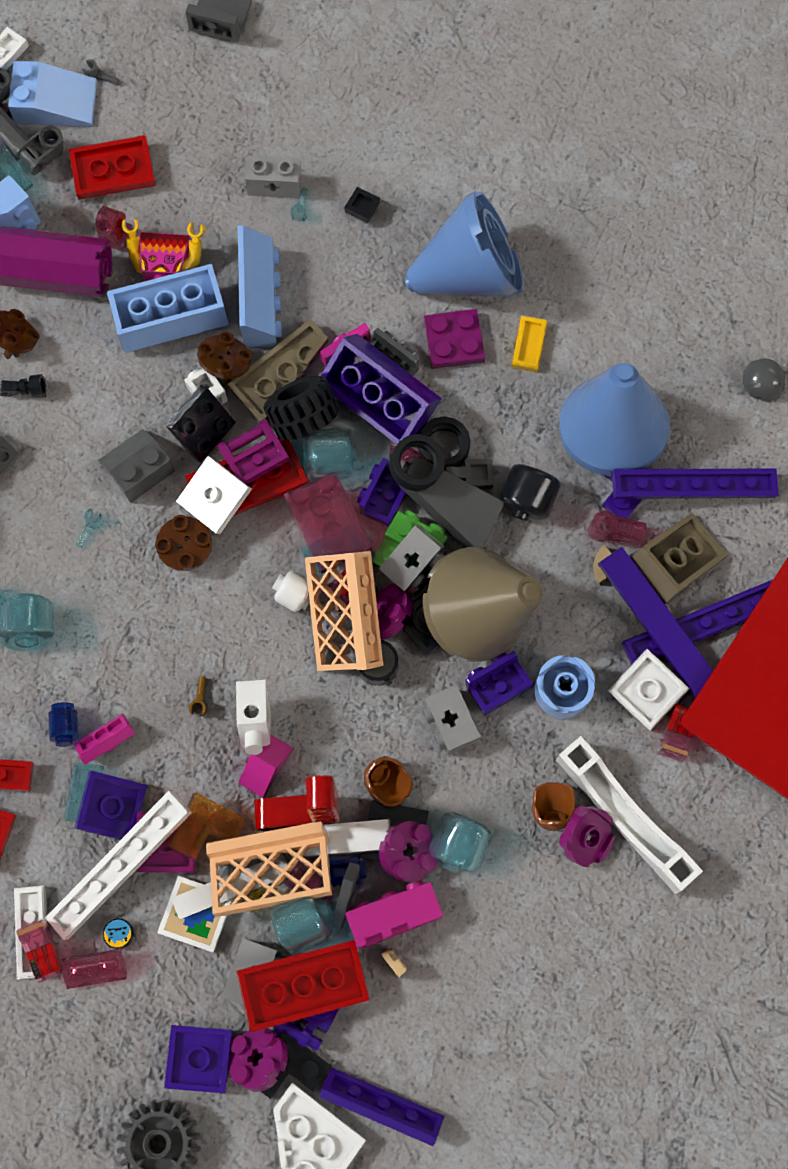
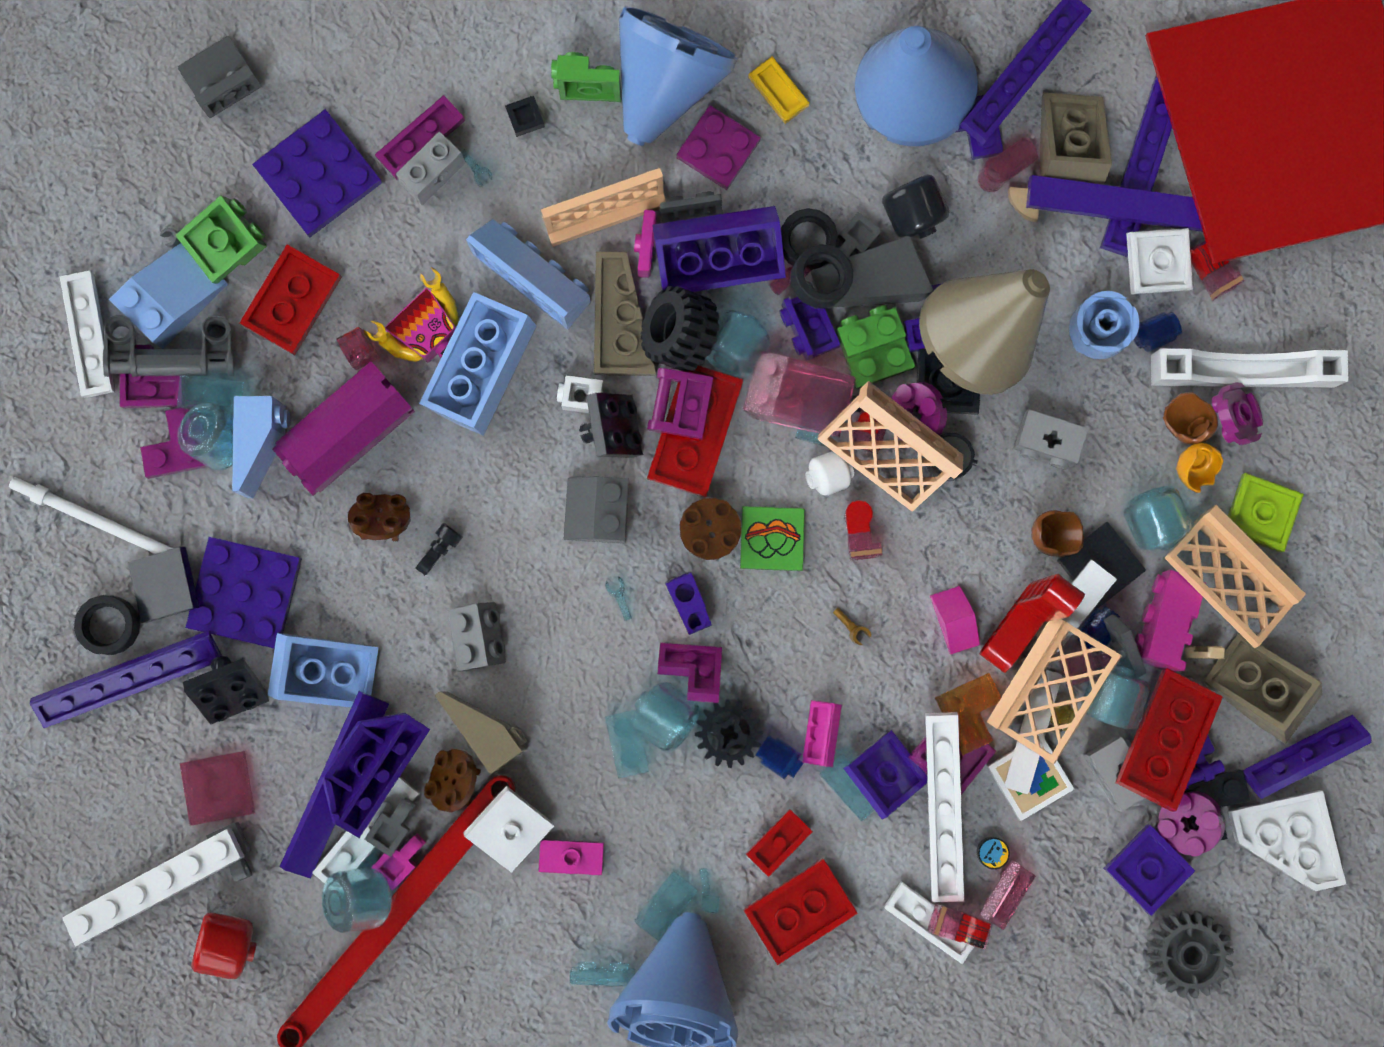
camera: 55 degrees left, 10 degrees up
(41, 676) = (742, 738): none -> black gear
(81, 614) = (698, 663): none -> magenta plate
(115, 96) = (222, 238): none -> bright green plate
(121, 573) = (688, 602): none -> dark purple leg
(210, 118) = (317, 173): none -> dark purple plate
(213, 495) = (691, 468): white plate -> none
(215, 593) = (772, 538): none -> bright green tile
(224, 356) = (554, 354): reddish brown plate -> none
(253, 724) = (917, 596): white torso -> none
(269, 646) = (858, 532): none -> leg
(313, 157) = (438, 117): none -> magenta plate
(342, 295) = (604, 207): none -> light nougat fence
(394, 844) = (1145, 563): magenta plate -> none
(397, 565) = (885, 338): light grey brick -> none
(406, 1029) = (1264, 687): none -> dark tan slope
(414, 213) = (578, 81): none -> bright green plate
(489, 939) = (1247, 561): none -> light nougat fence
(498, 682) = (1053, 375): dark purple bracket -> none
(525, 841) = (1199, 466): none -> light orange hair
(536, 920) = (1265, 511): none -> lime tile
(596, 729) = (1158, 331): none -> clear blue brick

